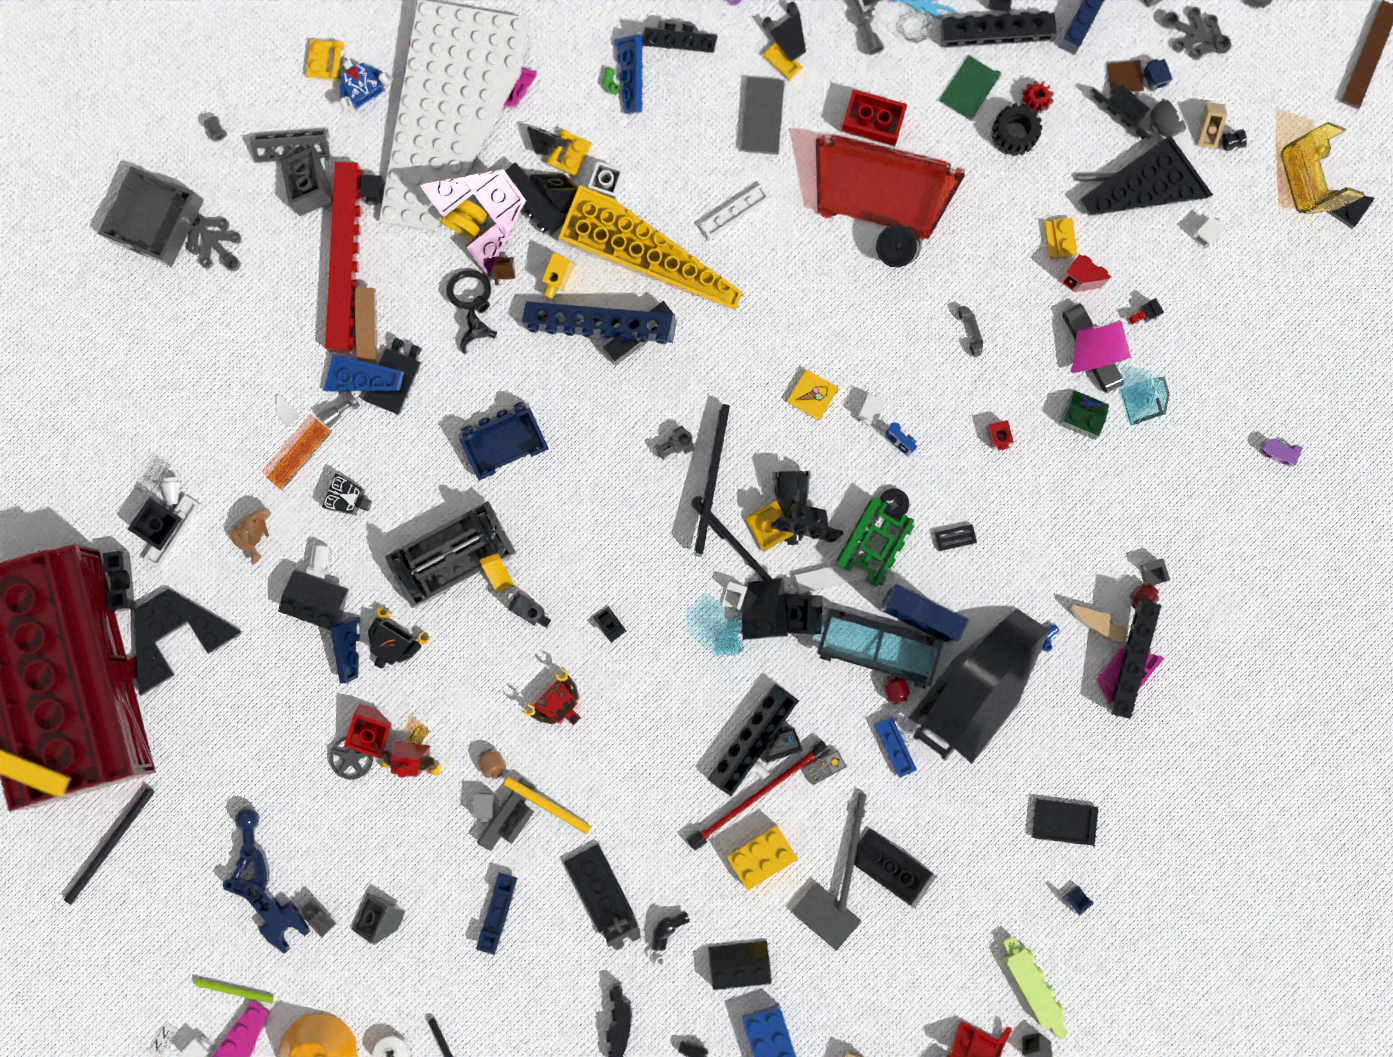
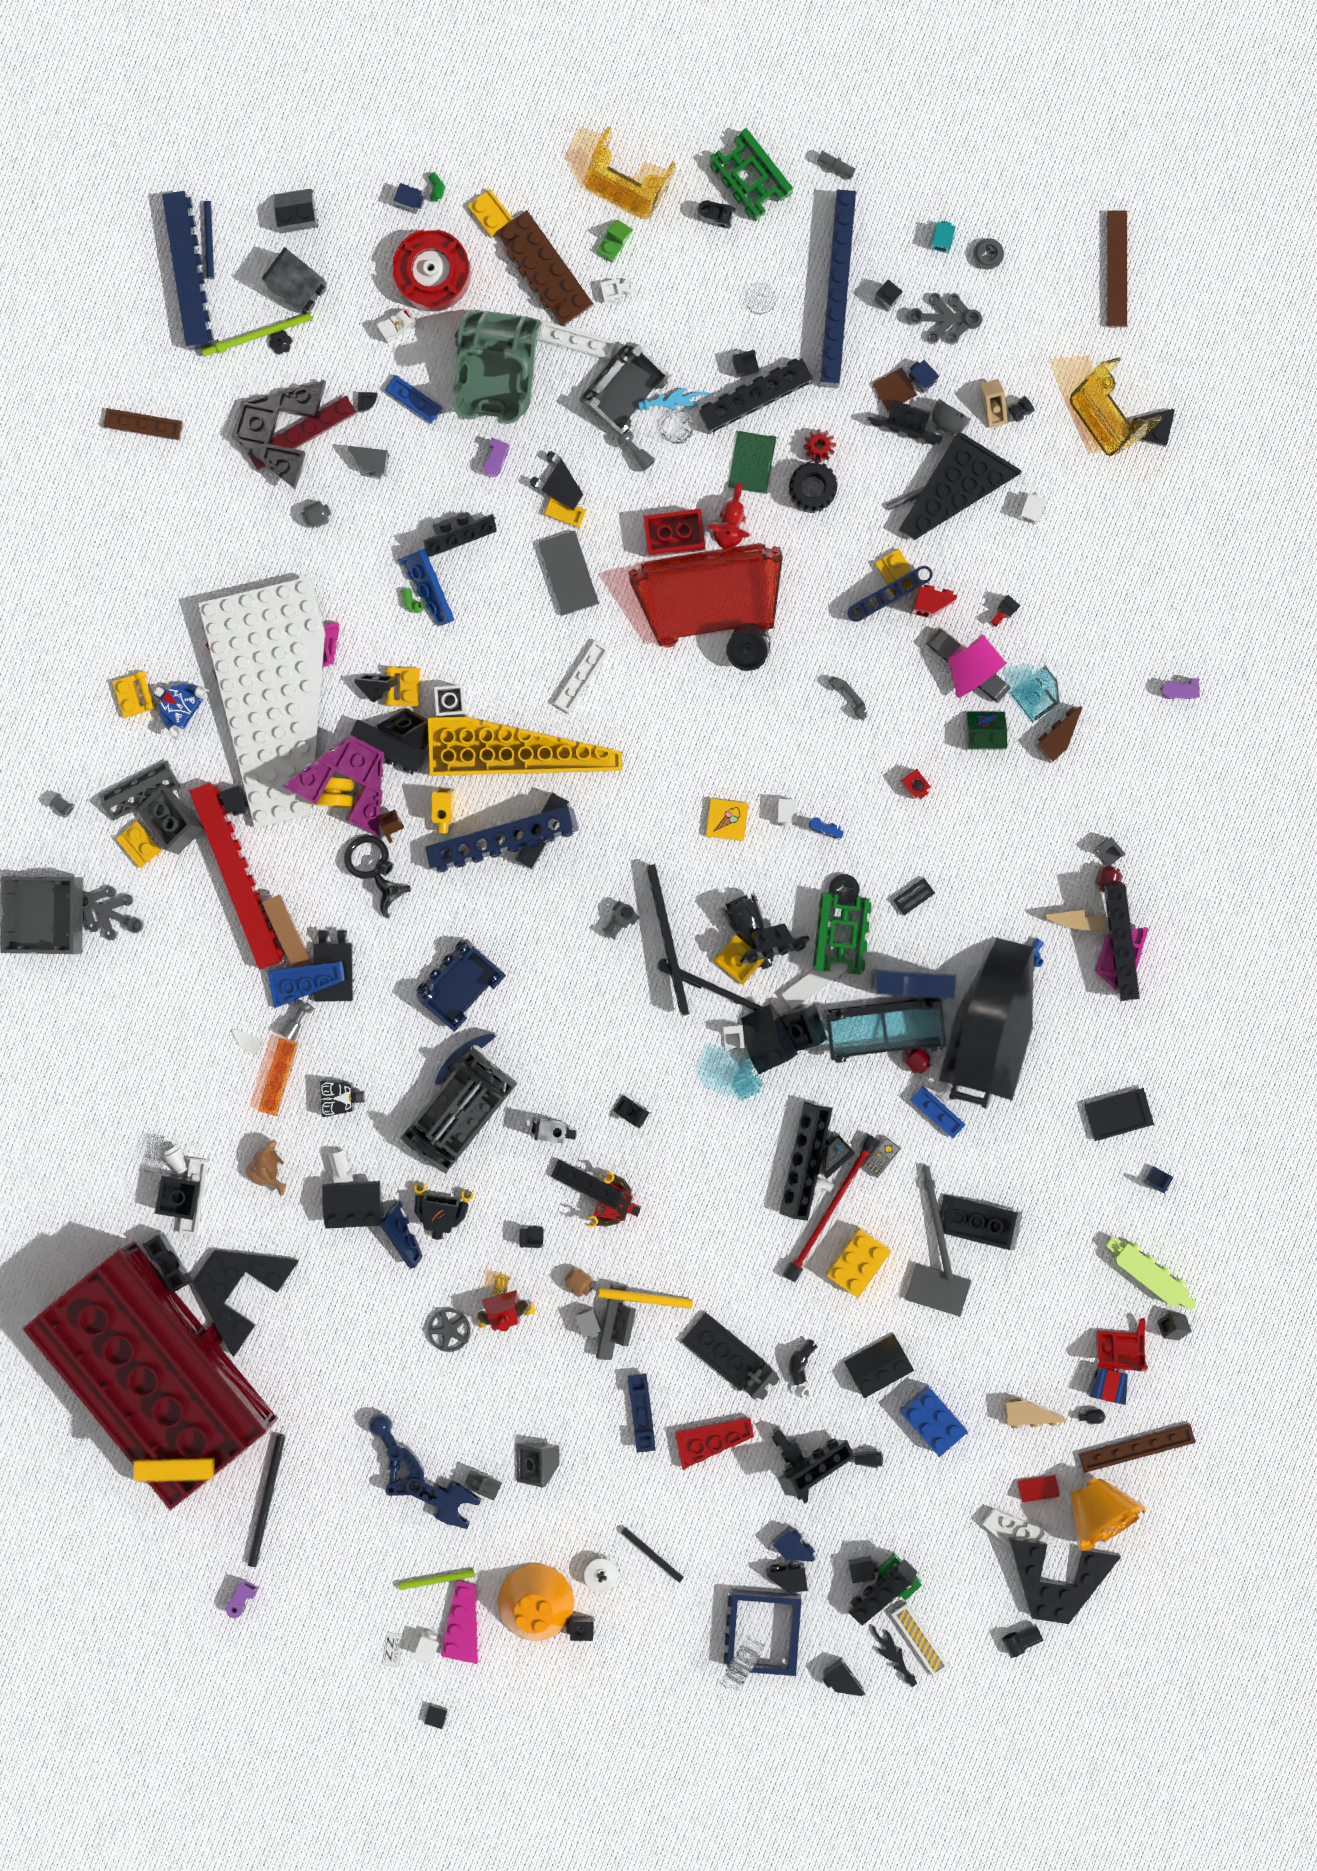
camera: 25 degrees left, 5 degrees up
(36, 932) = (237, 1603): none -> medium lavender leg
(268, 193) = (139, 844): none -> yellow plate
(368, 731) = (455, 1301): red slope -> none
(466, 702) = (531, 1237): none -> black panel
(497, 572) = (509, 1109): yellow tile -> none
(500, 500) = (445, 1070): none -> dark blue slope
(540, 674) = (587, 1184): none -> black tile
(547, 967) = (709, 1440): none -> red wing
(639, 1037) = (815, 1467): none -> black brick
(929, 130) = (728, 532): none -> red animal
(1040, 258) = (880, 594): none -> dark blue beam
(1147, 450) = (1058, 740): none -> reddish brown slope

